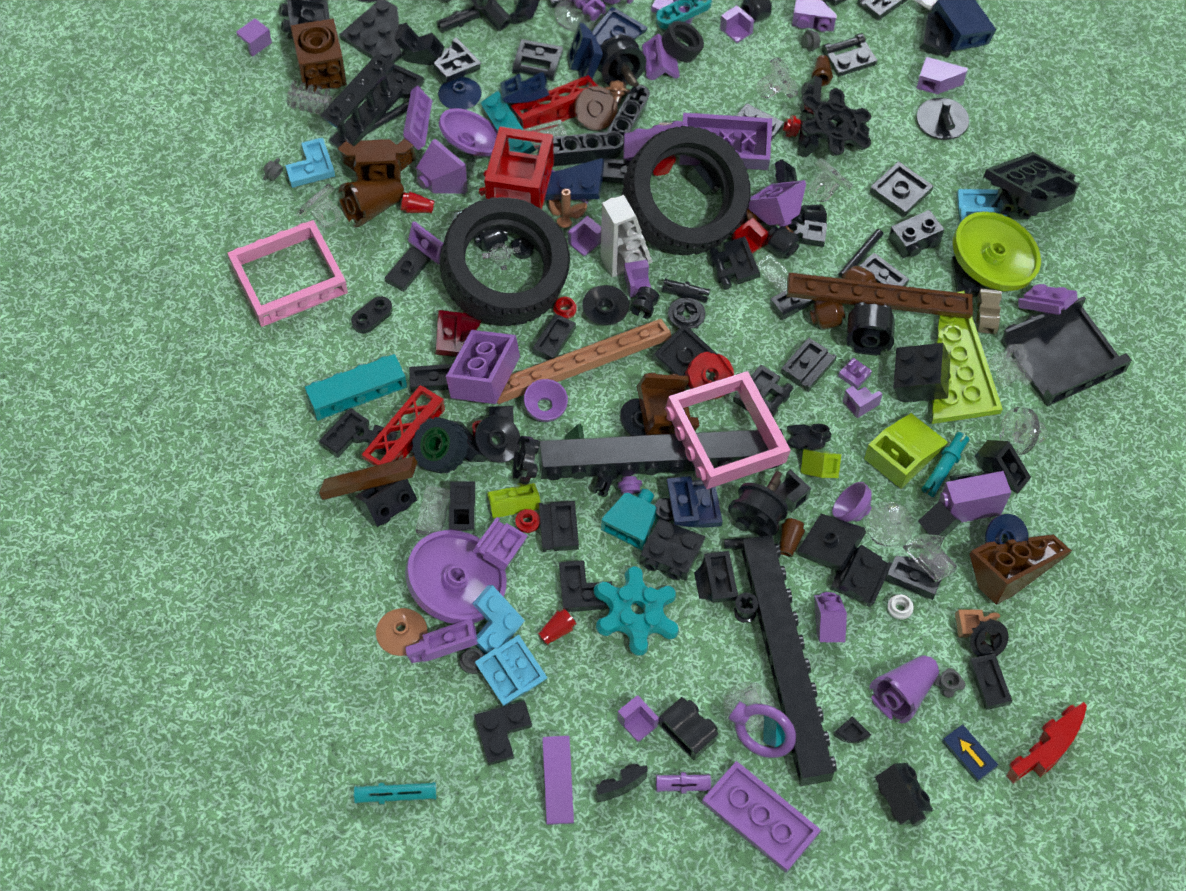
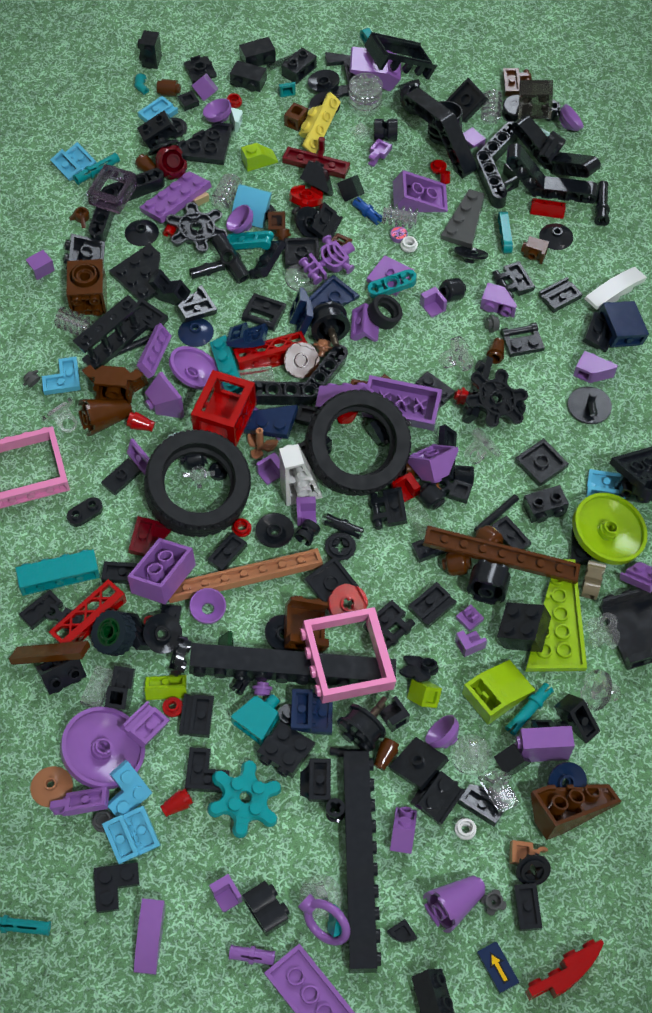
camera: 10 degrees right, 0 degrees up
(630, 778) = (208, 944): black slope -> none

